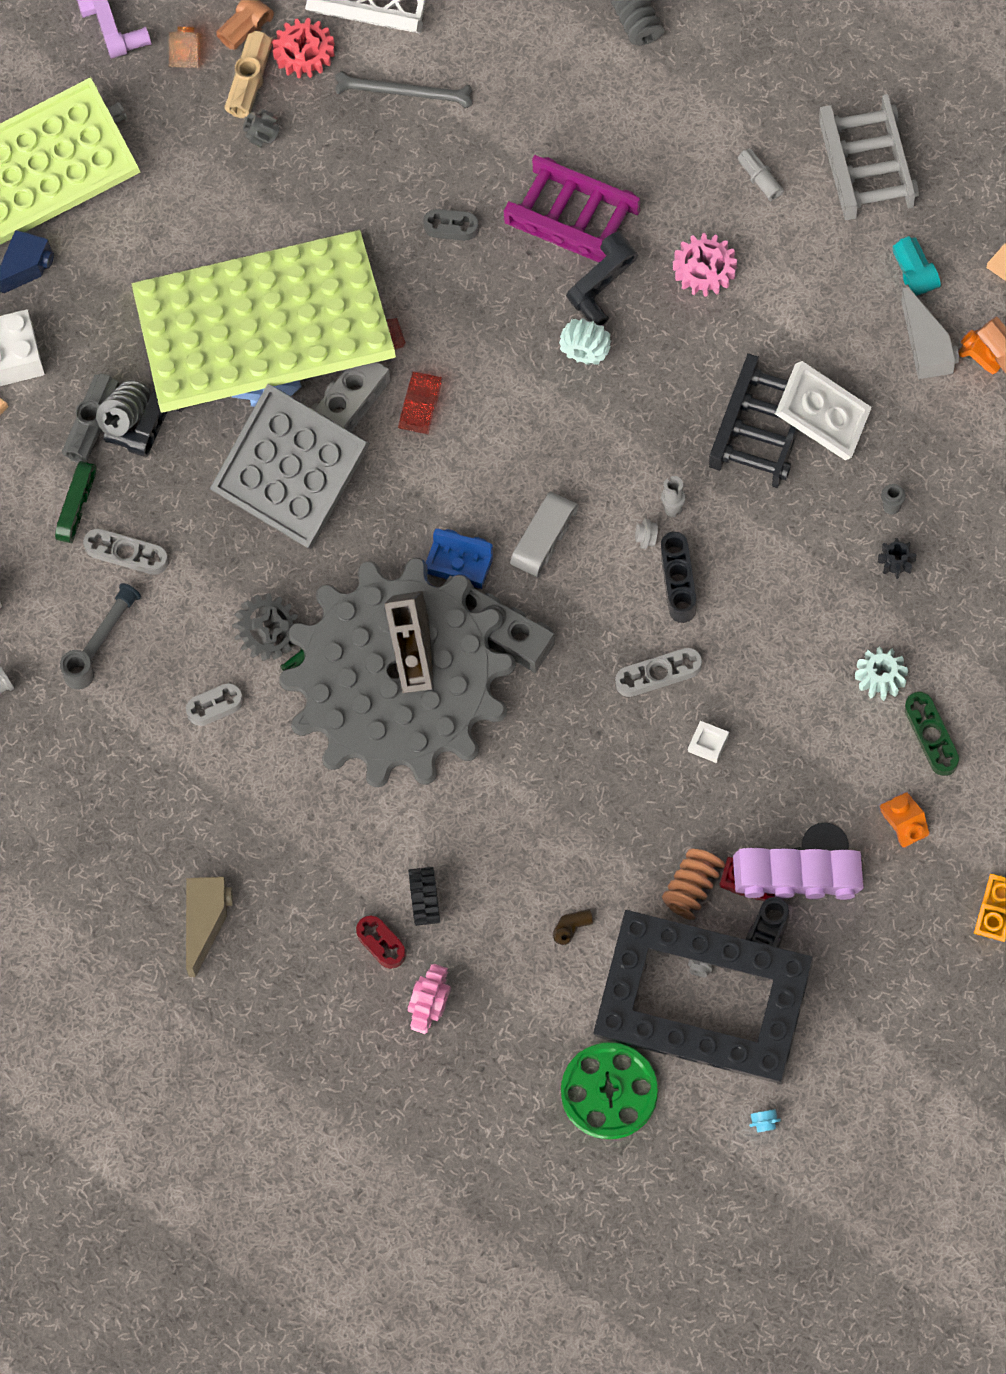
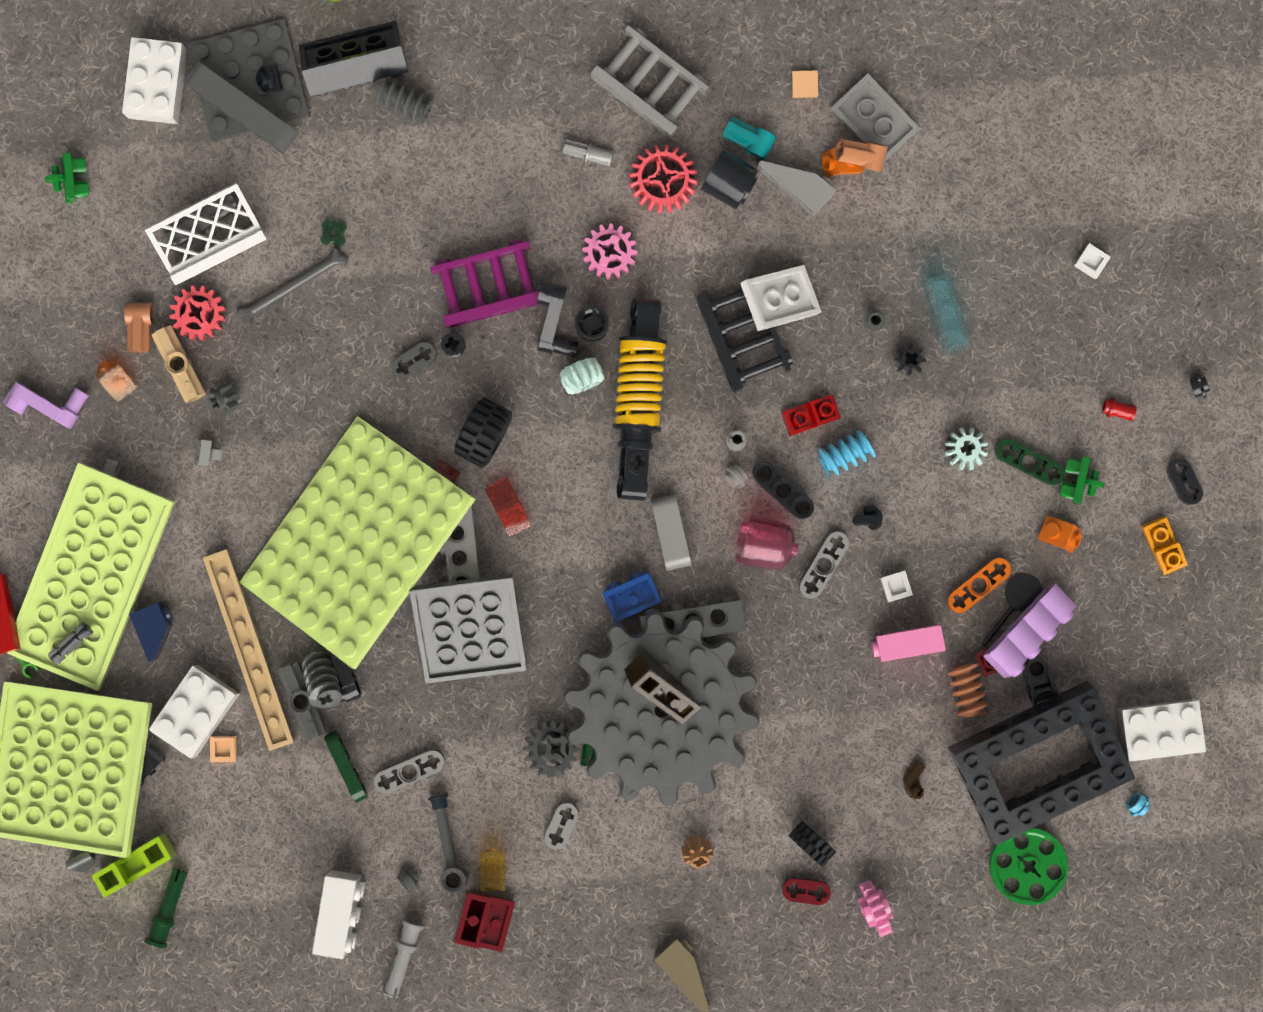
camera: 40 degrees left, 20 degrees up
(37, 640) = (408, 880): none -> dark grey plate
(68, 723) = (484, 921): none -> dark red brick
(85, 344) = (248, 649): none -> tan plate
(118, 689) = (492, 870): none -> clear yellow bracket
(203, 160) = (205, 453): none -> light grey tile
(313, 821) = (697, 851): none -> medium nougat gear
(454, 316) = (483, 432): none -> black tyre
(478, 66) = (338, 238): none -> clear green plate
(496, 235) = (446, 342): none -> black bush
(620, 395) = (637, 396): none -> piece
(620, 604) = (765, 543): none -> clear pink cylinder
(633, 307) = (591, 323): none -> black wheel
(675, 795) = (908, 643): none -> bright pink slope
(740, 663) = (871, 517): none -> black plate
(763, 538) = (810, 415): none -> red slope
(764, 590) = (845, 453): none -> medium azure piece
(795, 793) = (968, 583): none -> orange beam
(821, 254) = (651, 181): none -> coral gear
(845, 1065) = (1161, 730): none -> white brick
(865, 282) = (730, 180): none -> black piece
(964, 544) = (946, 314): none -> clear light blue brick
(967, 788) = (1076, 491): none -> green hips

